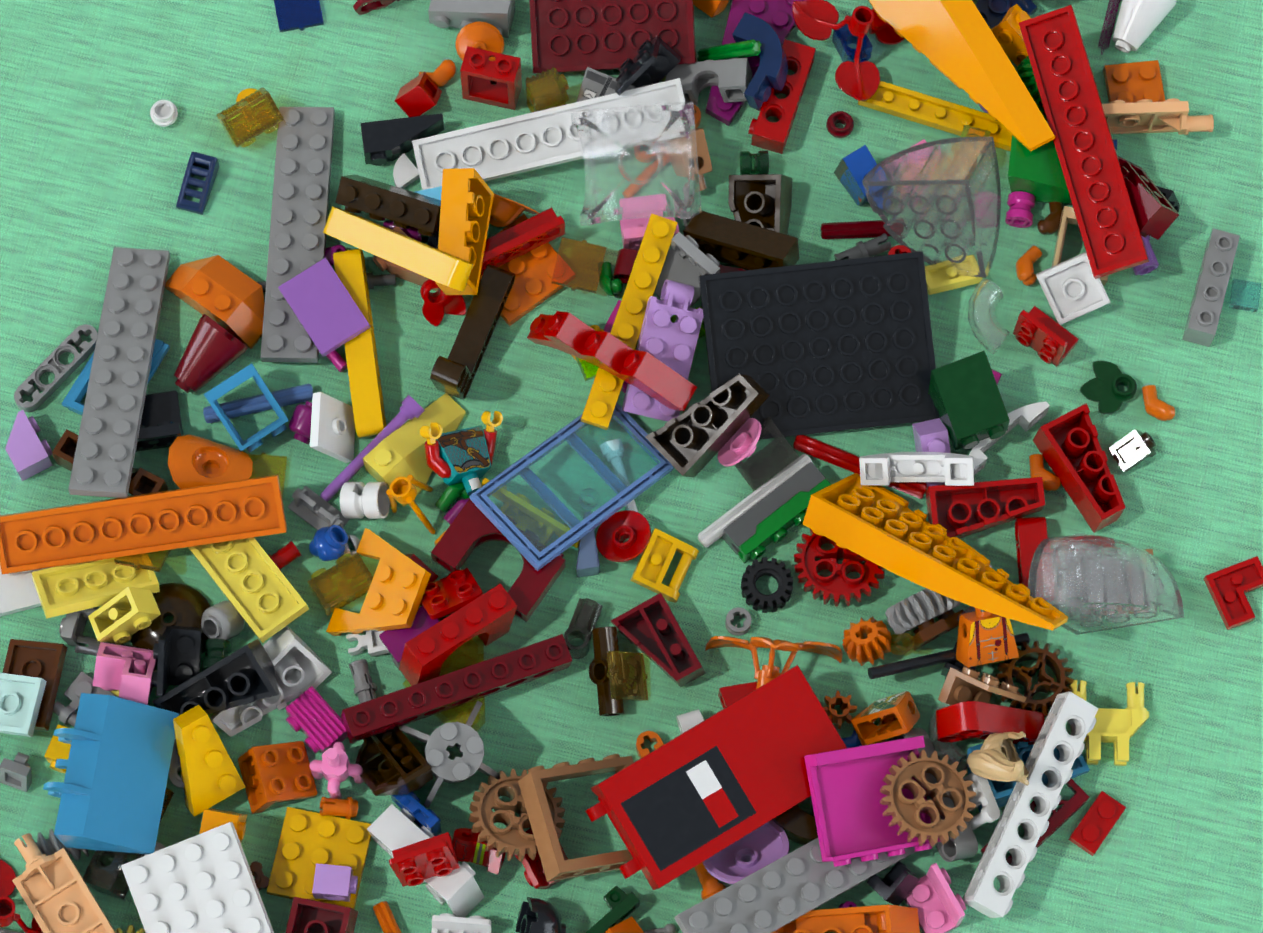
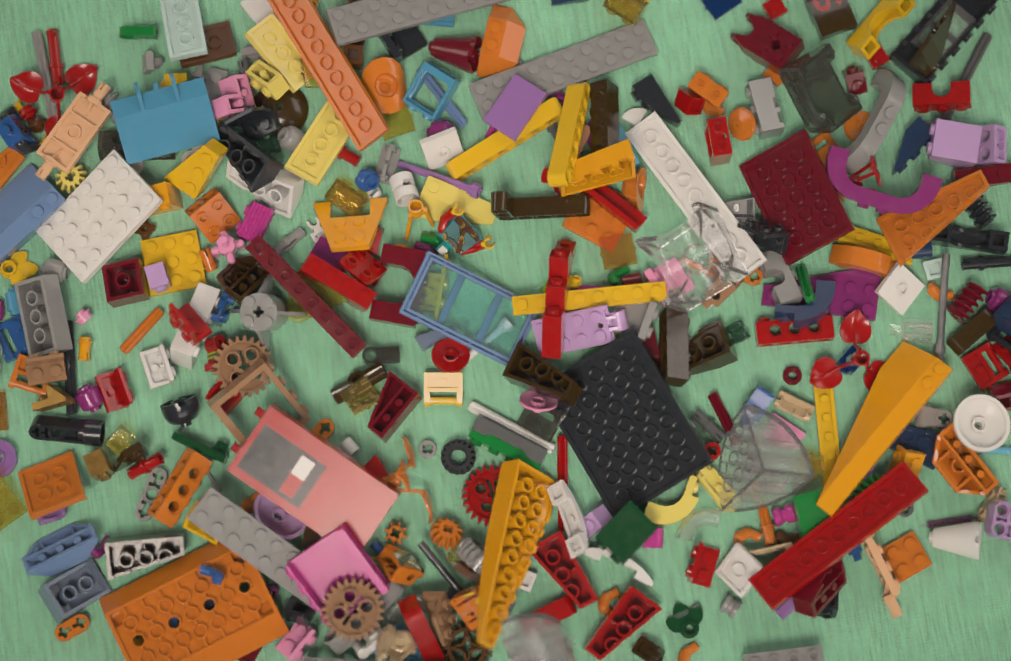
camera: 70 degrees right, 10 degrees up
(414, 63) = (708, 89): none -> orange bracket
(546, 90) = (723, 181): clear yellow brick -> none
(884, 134) = (794, 405): none -> tan hinge
(957, 325) = (672, 514): none -> light yellow arch
(1026, 236) = (767, 527): none -> orange axle
(1114, 322) = (730, 606): none -> light grey wheel

